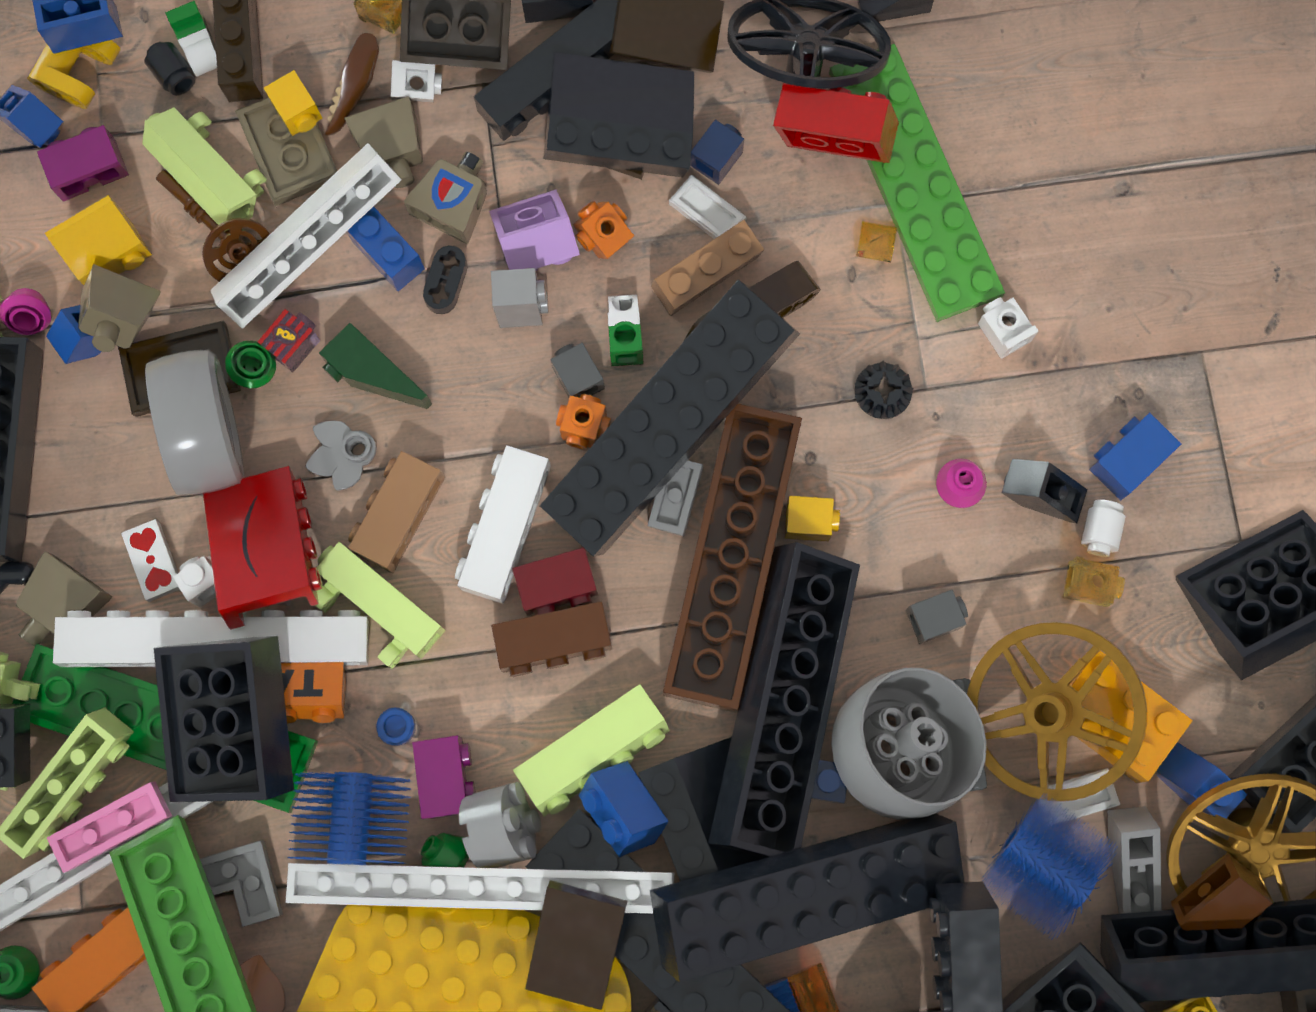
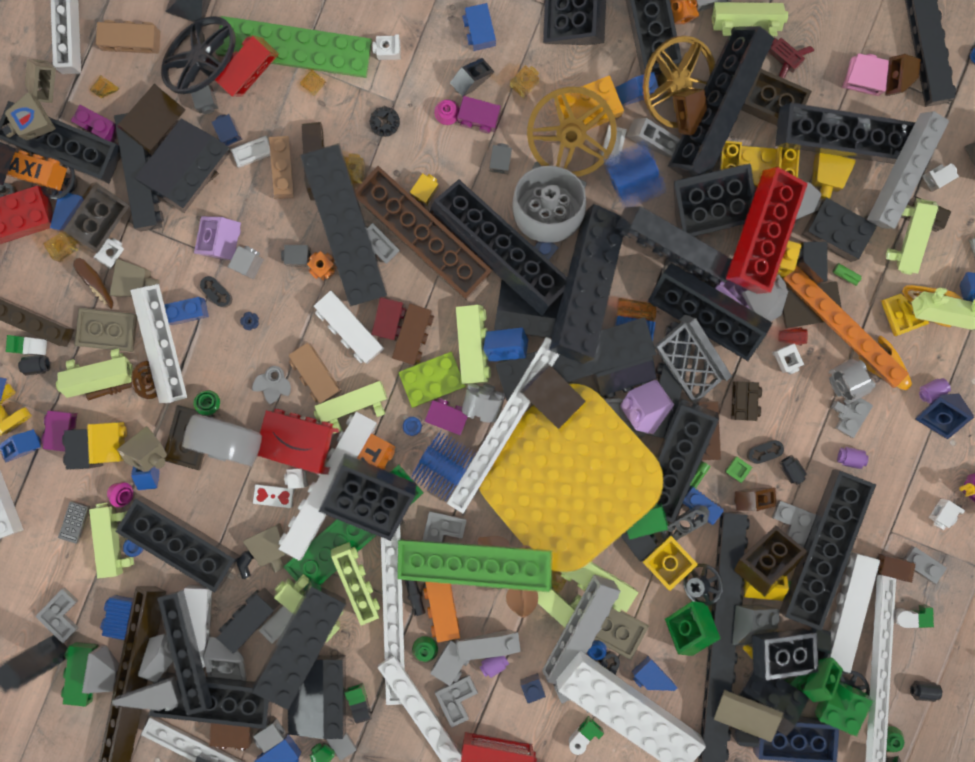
camera: 60 degrees left, 10 degrees up
(58, 201) = (77, 450): none -> black brick
(98, 901) = (415, 598): none -> black pin
(109, 827) = (386, 573): bright pink plate -> none
(290, 339) = (204, 378): brick -> none
(293, 103) = (88, 315): yellow brick -> none
(366, 368) = (239, 350): dark green slope -> none
(430, 367) = (254, 321): none -> dark blue plate
(444, 851) = (480, 432): green cone -> none
(450, 197) = (177, 267): dark tan torso -> none
(494, 714) = (431, 379): none -> lime plate
(614, 231) = (234, 205): orange brick -> none
(624, 331) = (289, 222): green leg -> none
(746, 91) = (205, 100): none -> dark grey brick
(769, 395) = (358, 173): none -> clear yellow brick
(989, 537) = (478, 114): none -> magenta brick
(1103, 528) = (504, 61): white brick -> none

